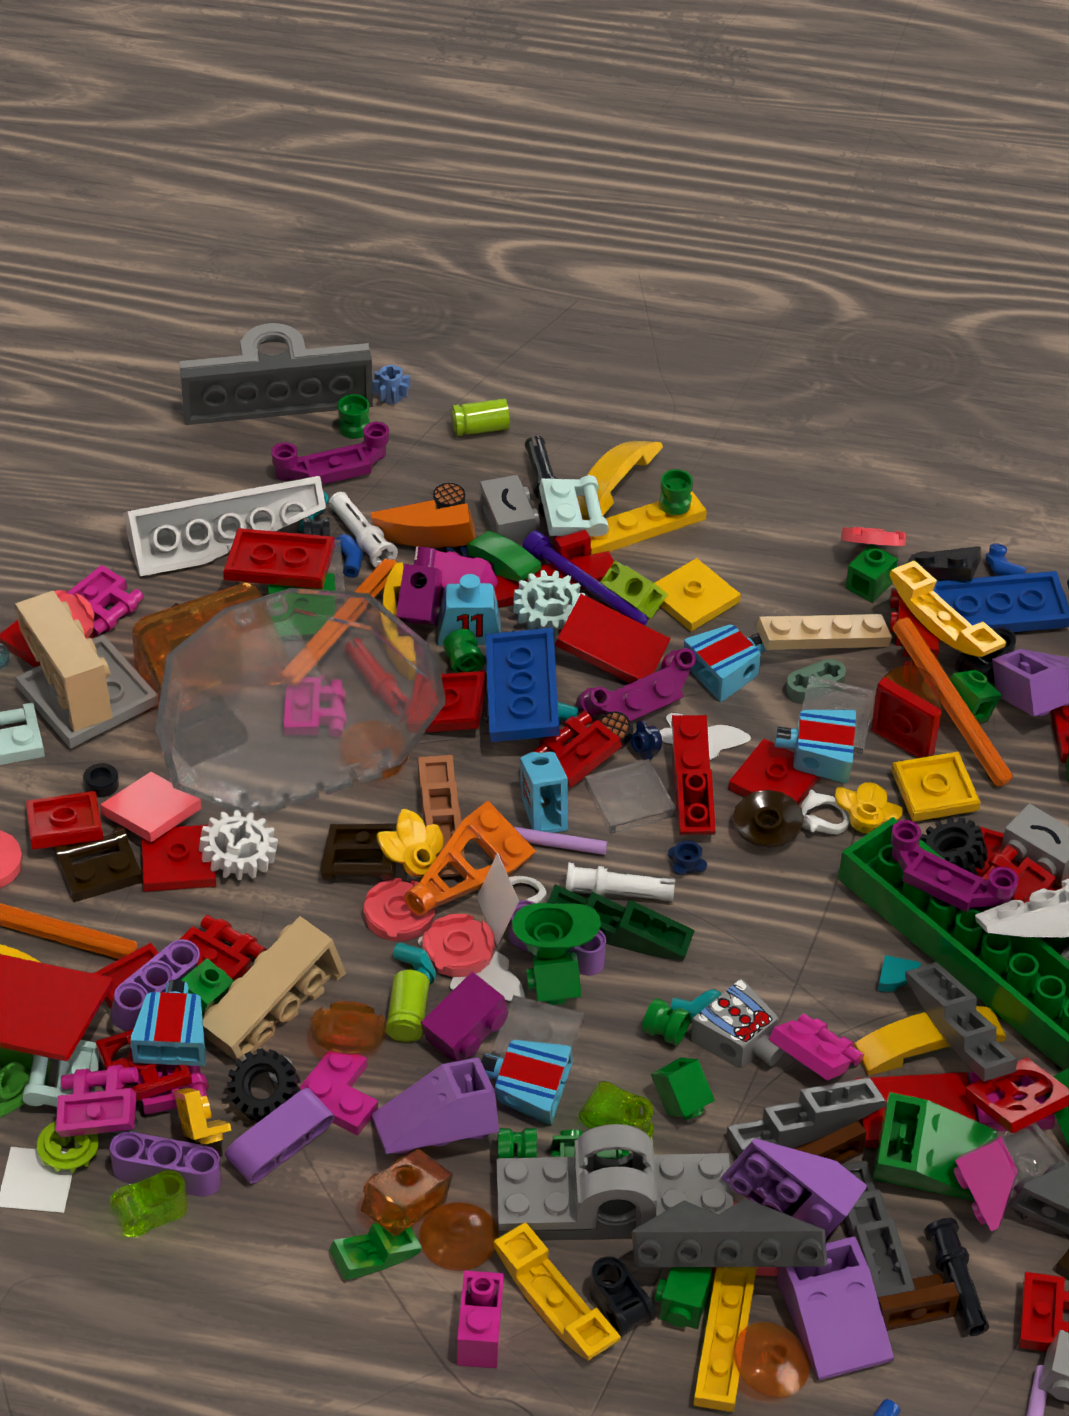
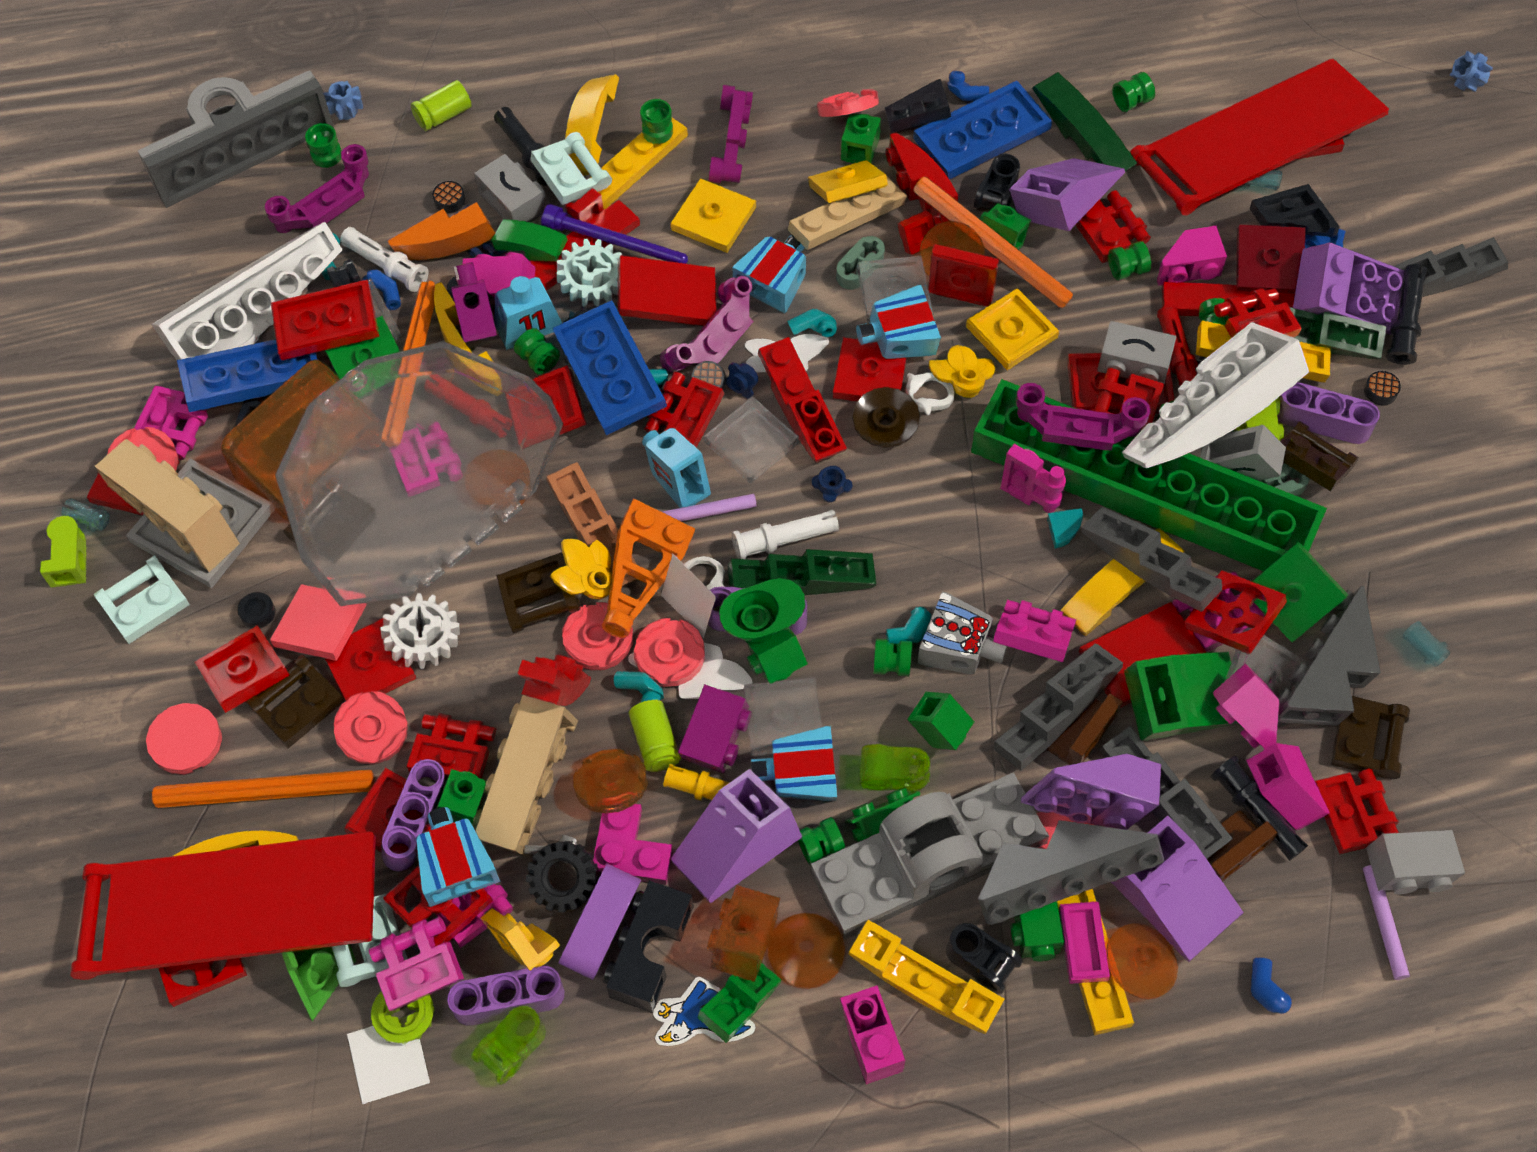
camera: 20 degrees left, 15 degrees up
(154, 908) = (370, 727): none -> coral tile
(172, 577) = (236, 374): none -> blue plate
(314, 1246) = (682, 1013): none -> sticker
(332, 914) = (554, 680): none -> red slope
(334, 1151) = (658, 914): none -> black arch
(419, 1054) = (691, 782): none -> yellow pin
(634, 588) = (660, 230): lime leg -> none
(720, 1318) = (1084, 942): none -> dark pink tile
(743, 714) = (815, 320): none -> teal arm
(762, 507) = (739, 104): none -> magenta plate
(837, 604) = (848, 181): none -> yellow plate
(877, 917) = (1028, 480): none -> dark pink plate
(879, 666) = (914, 230): none -> red tile
(916, 590) = (914, 143): yellow slope -> none
(958, 835) = (1064, 370): black tyre -> none
(995, 1262) = (1288, 784): none -> dark pink slope

